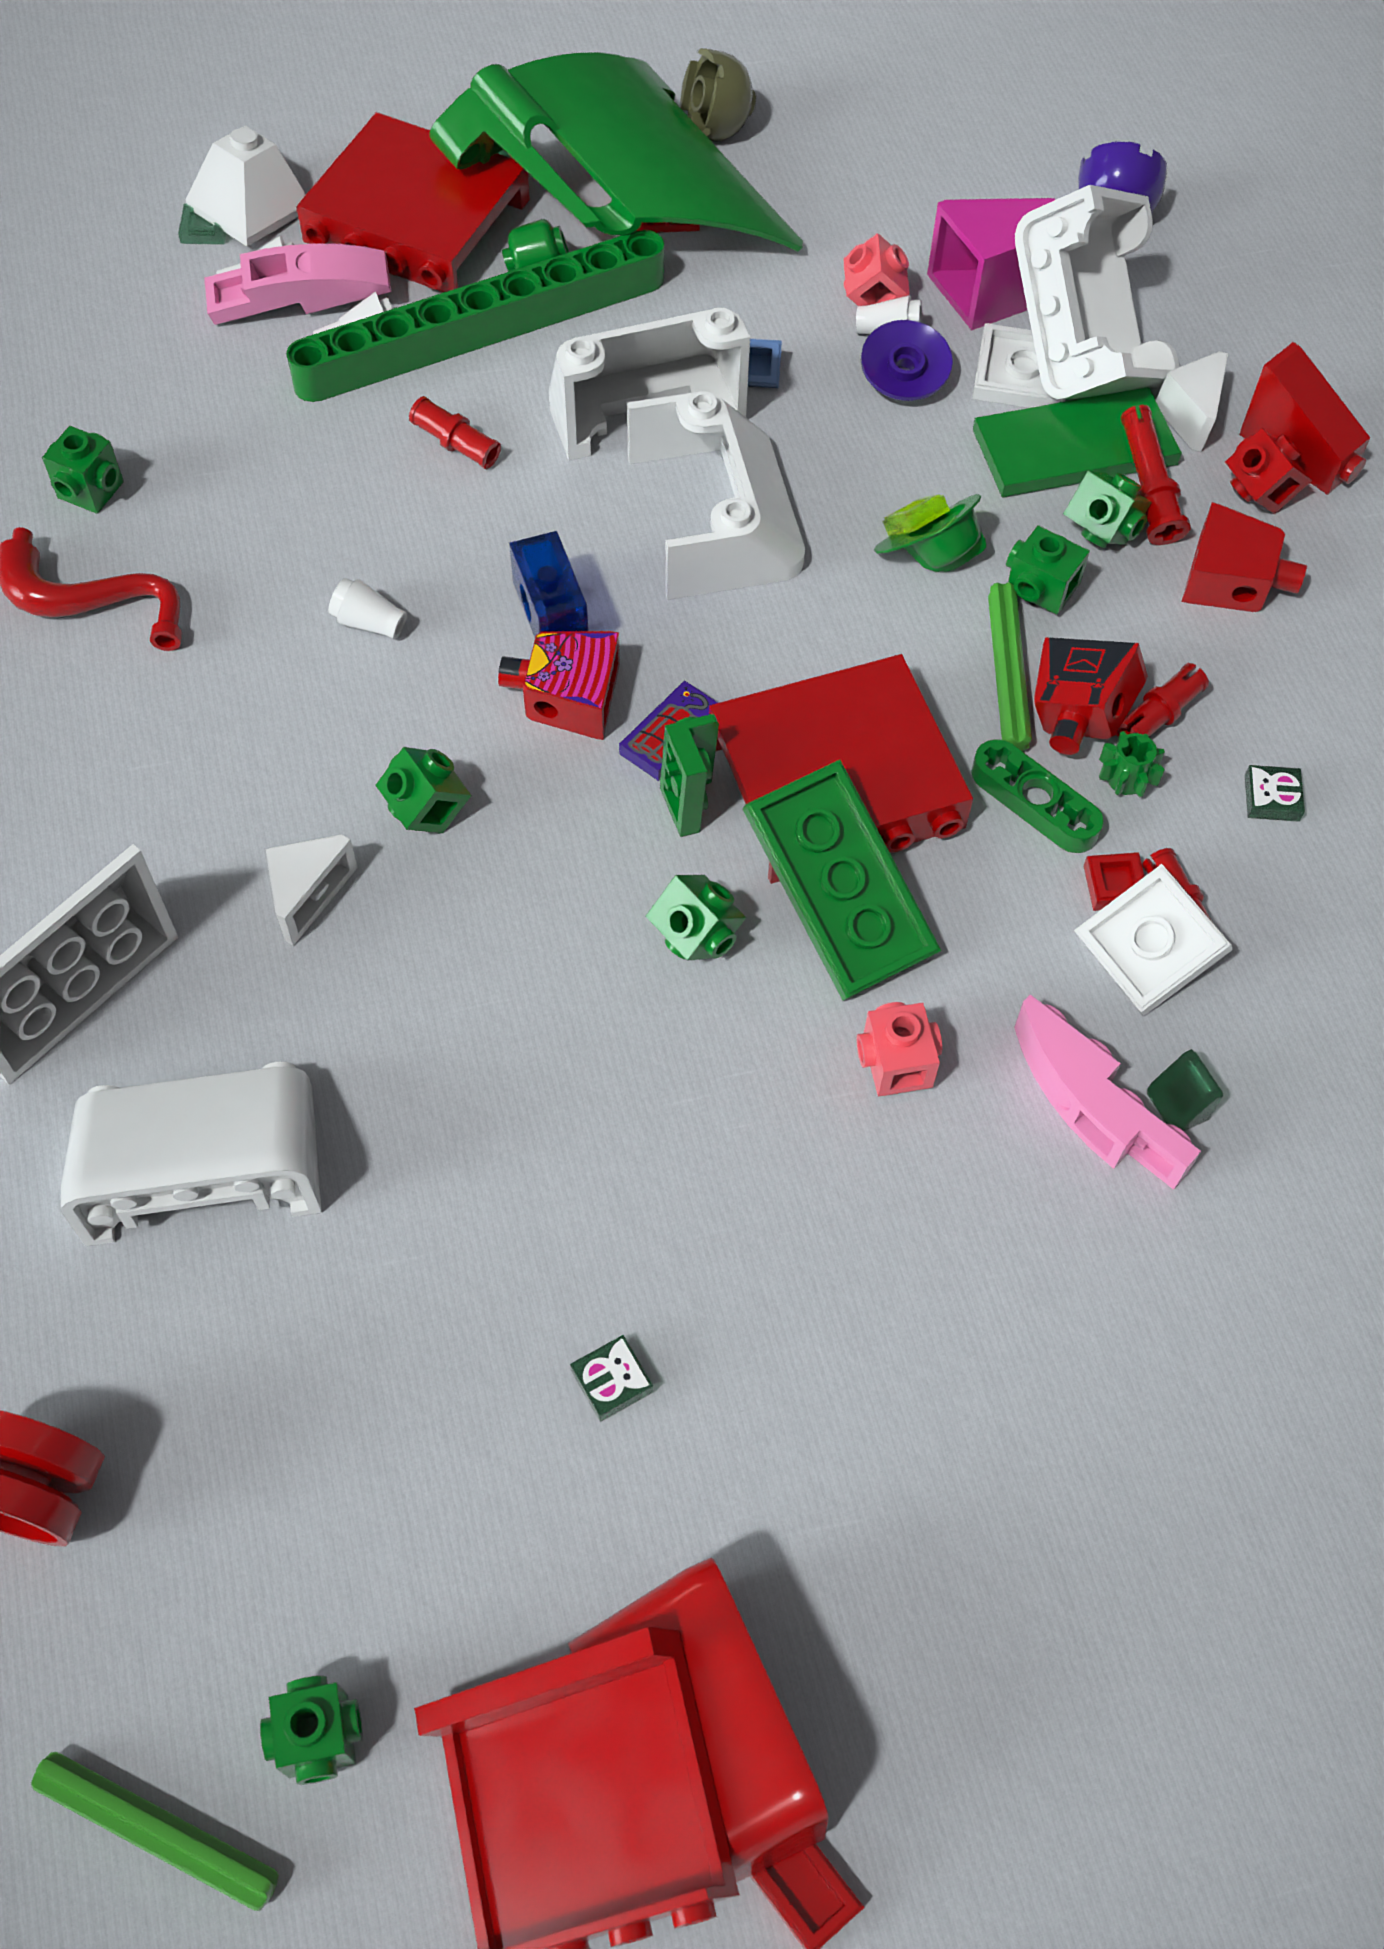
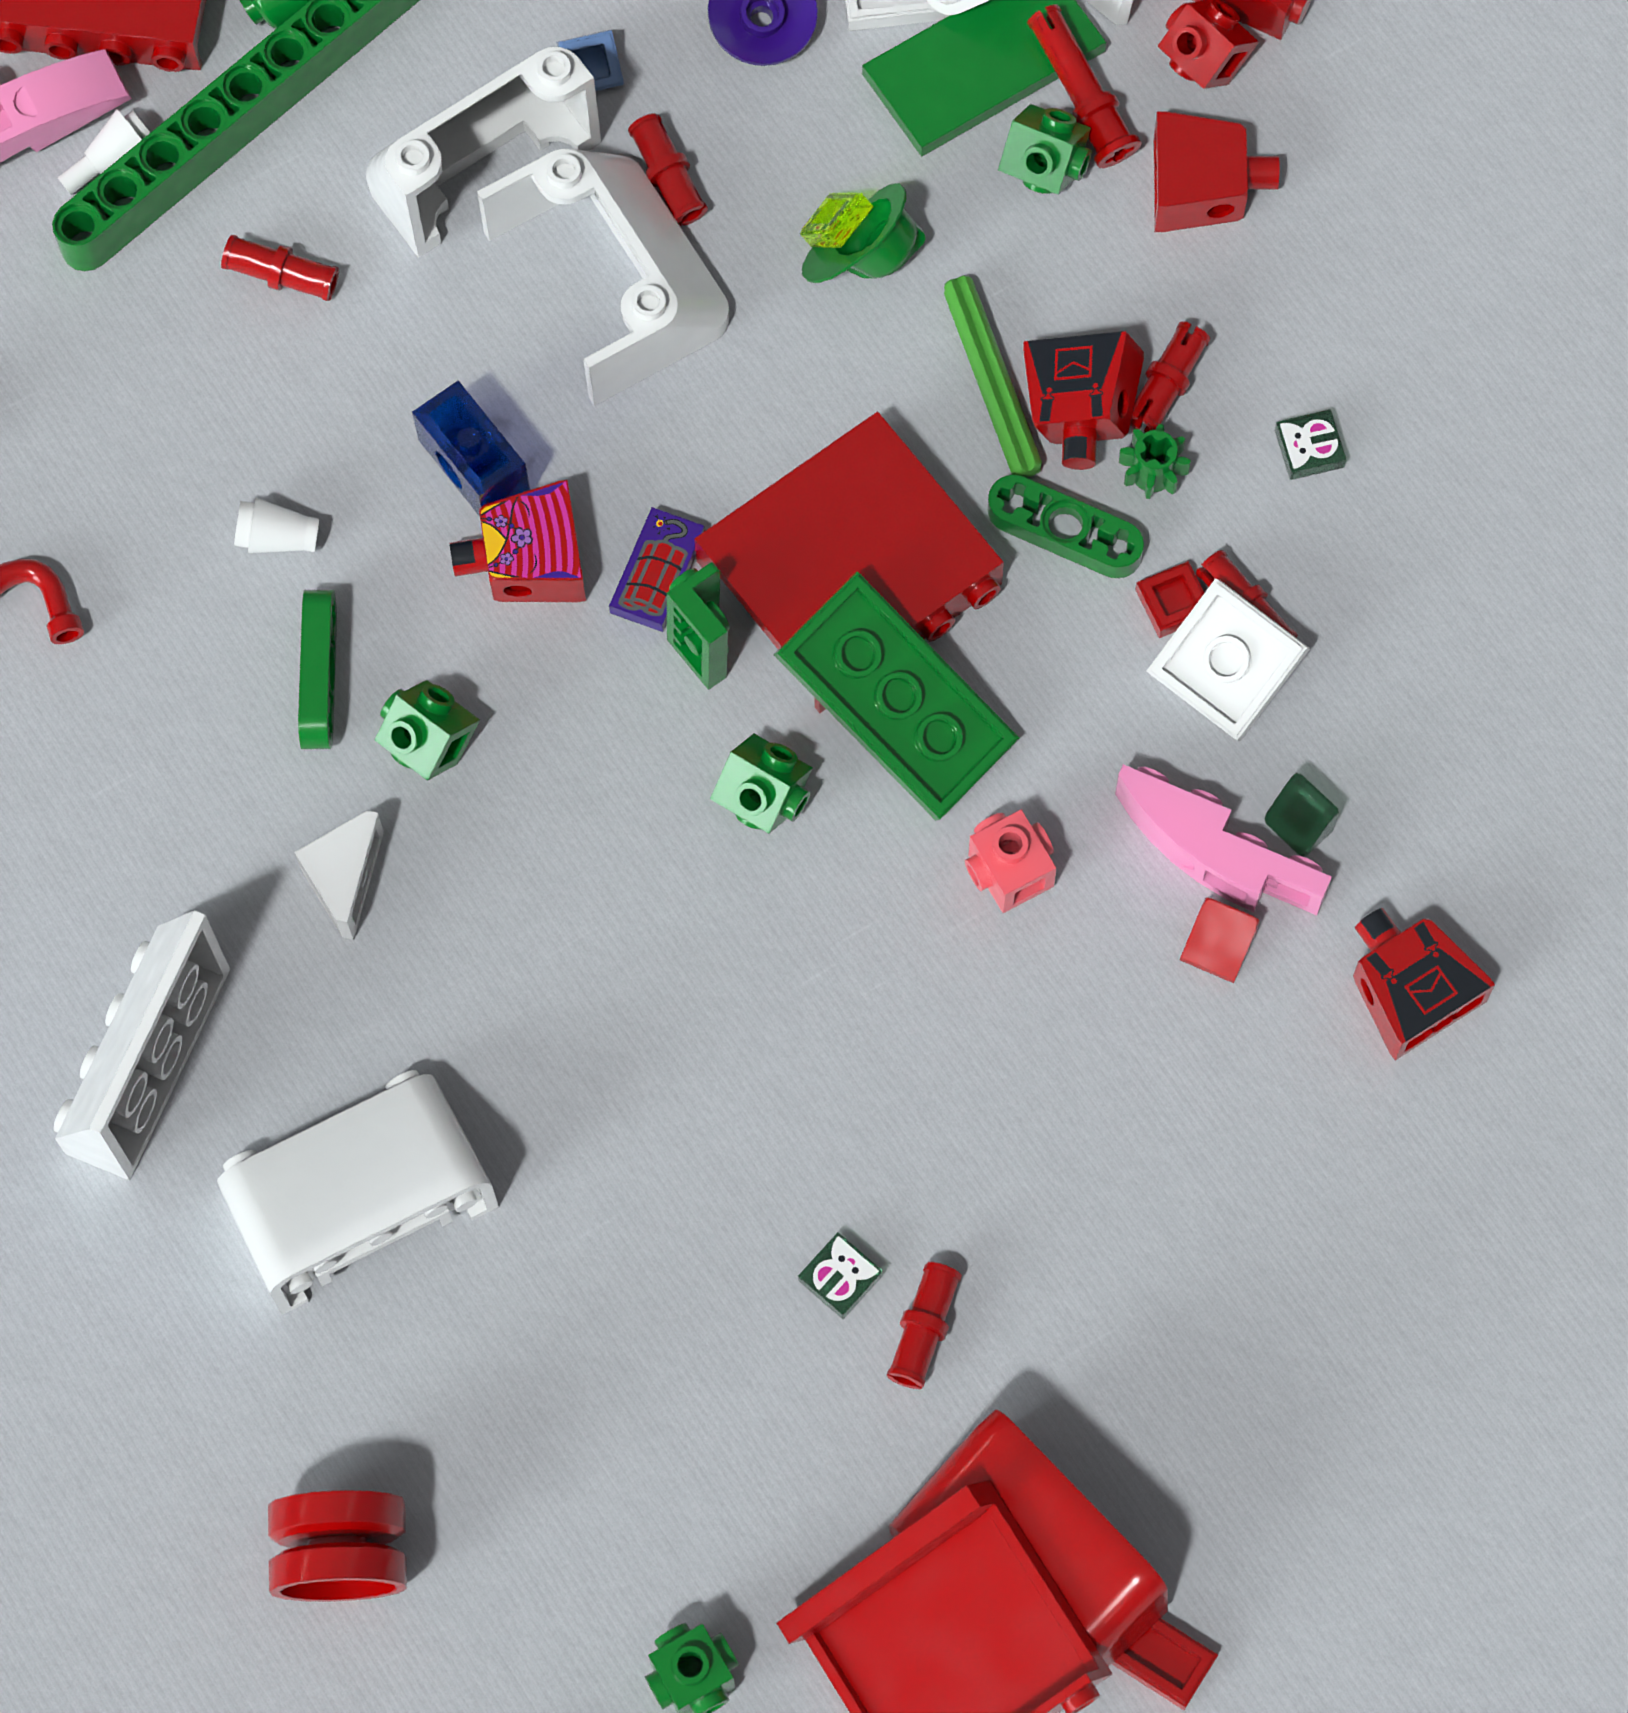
camera: 15 degrees left, 10 degrees up
(354, 722) = (317, 669): none -> green beam
(674, 1452) = (924, 1325): none -> red pin
(791, 447) = (667, 169): none -> red pin
(1046, 568) = (999, 249): green brick -> none
(1076, 1180) = (1220, 939): none -> slope
(1257, 1276) = (1415, 981): none -> torso

